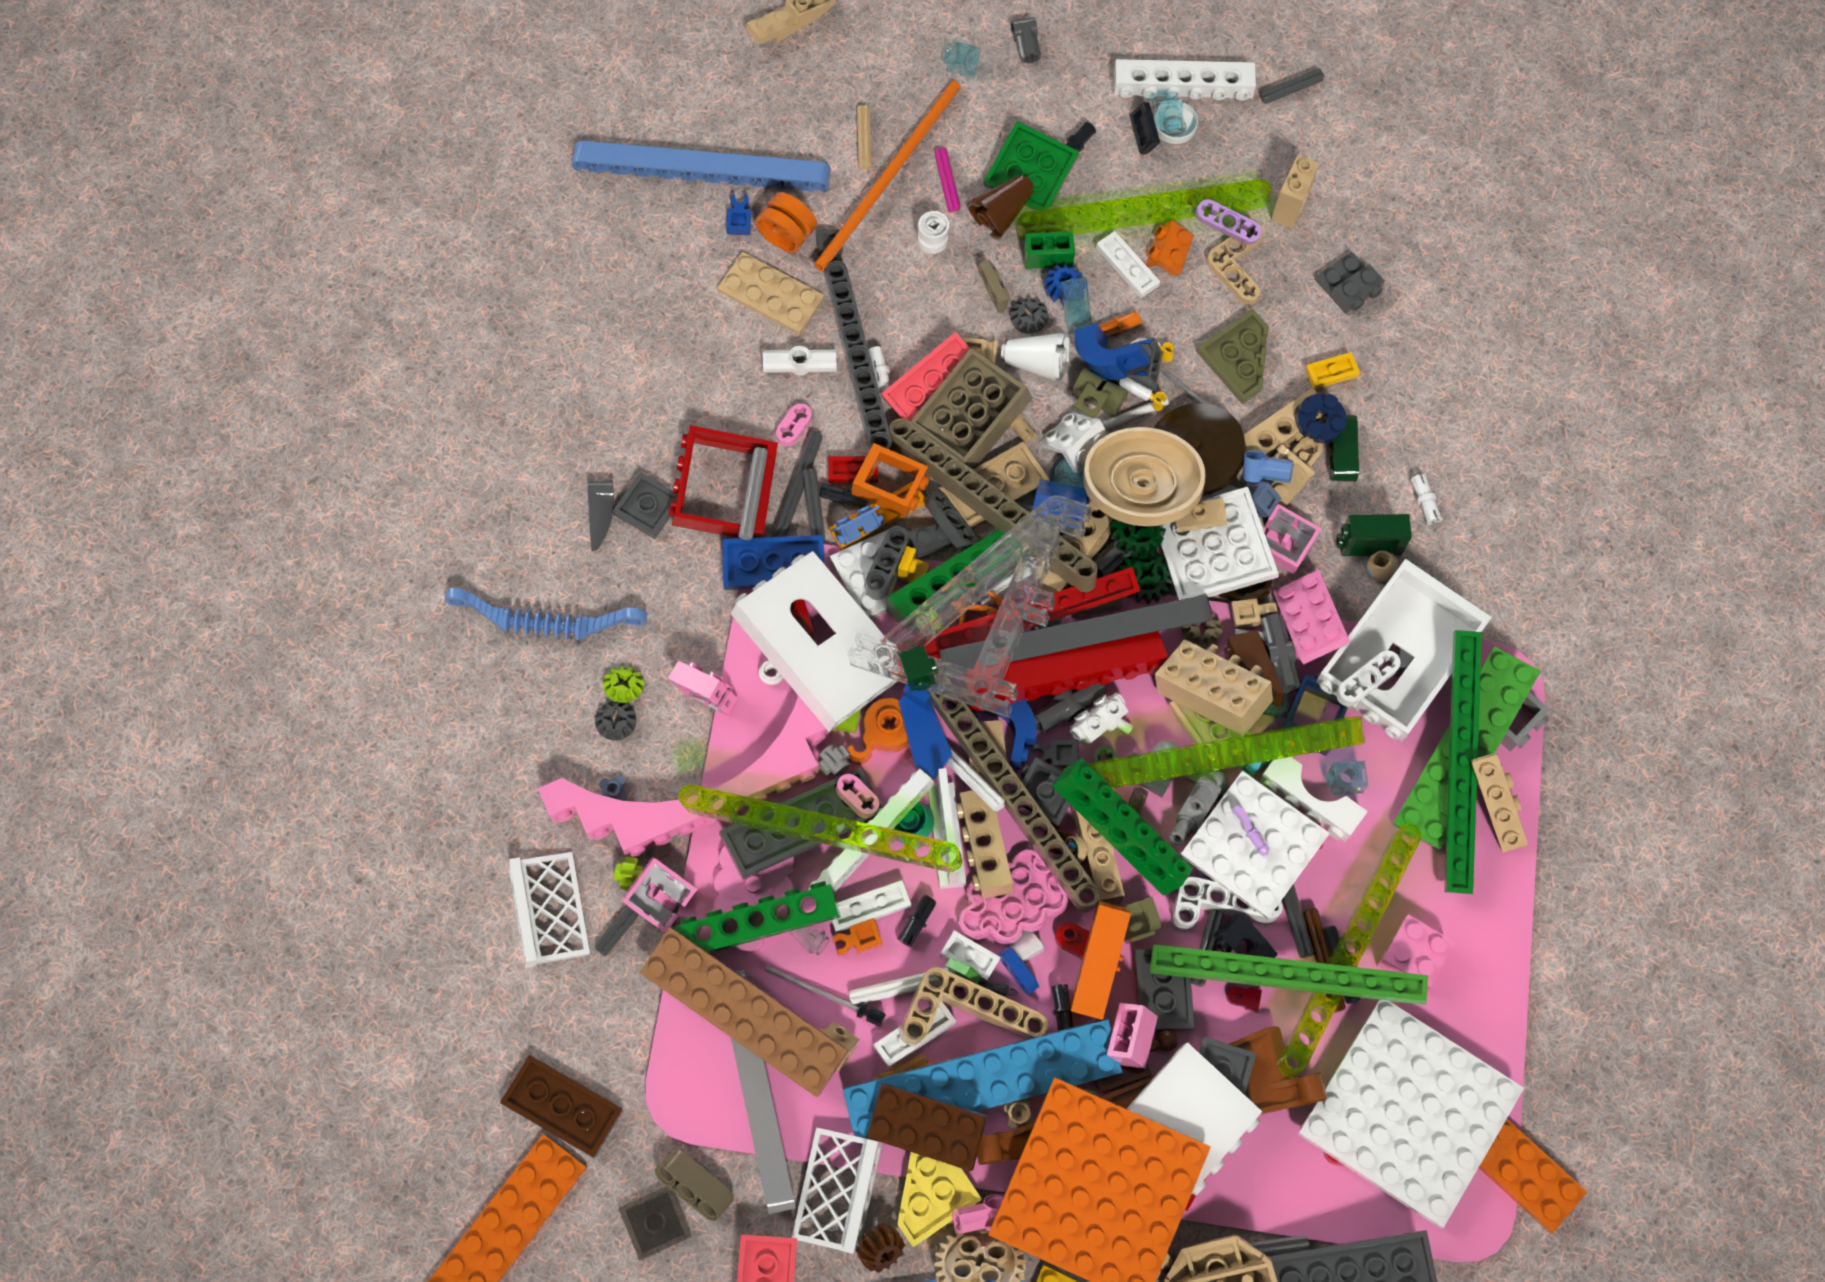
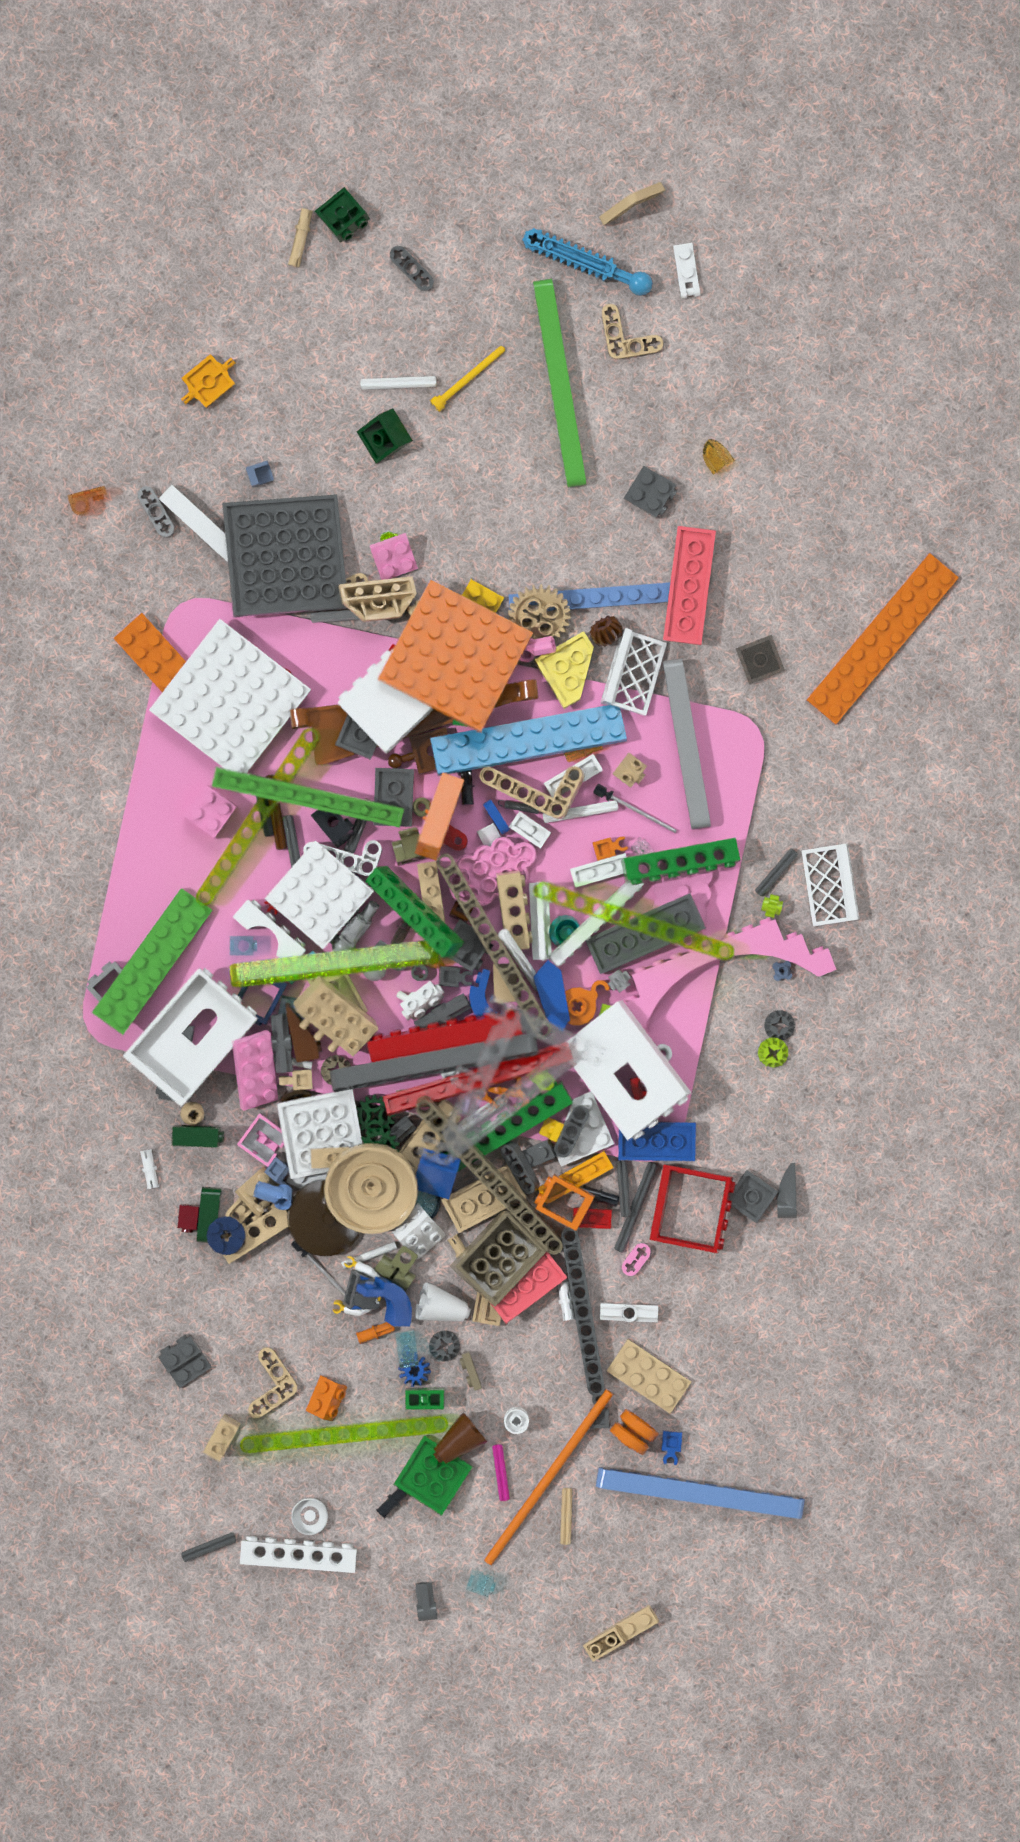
camera: 175 degrees left, 20 degrees up
(561, 1106) = (822, 742): reddish brown plate -> none
(581, 627) = (803, 1099): medium blue piece -> none
(657, 894) = (752, 888): piece -> none
(694, 1184) = (732, 682): dark tan beam -> none
(703, 687) = (713, 1040): bright pink piece -> none
(744, 1012) = (693, 795): medium nougat plate -> none
(753, 493) = (670, 1195): light grey axle -> none
(849, 530) = (585, 1171): medium blue hinge -> none
(861, 791) = (607, 947): bright pink beam -> none
(917, 921) = (566, 857): black axle -> none
(918, 668) = (556, 1029): dark green brick -> none
(927, 1126) = (570, 707): reddish brown plate -> none
(963, 970) = (536, 817): bright green tile -> none
(1021, 1106) = (500, 712): tan plate -> none
(1077, 847) = (448, 901): tan tile -> none
(1127, 264) = (361, 1385): white plate -> none
(1131, 977) = (416, 803): none -> olive plate
(1132, 1035) = (421, 761): bright pink brick -> none
(1144, 128) = (335, 1510): black plate -> none
(1171, 125) = (316, 1509): clear light blue brick -> none
(1239, 355) = (281, 1300): olive plate -> none
(1241, 235) = (263, 1412): lavender beam -> none
(1249, 998) = (332, 786): dark red piece -> none
(1252, 833) = (321, 898): lavender piece -> none
(1332, 370) = (209, 1282): yellow plate -> none
(1371, 442) = (188, 1218): none -> dark red brick
(1372, 668) = (208, 1015): white beam -> none
(1461, 774) = (159, 947): green plate -> none
(1500, 802) = (133, 917): tan bracket -> none

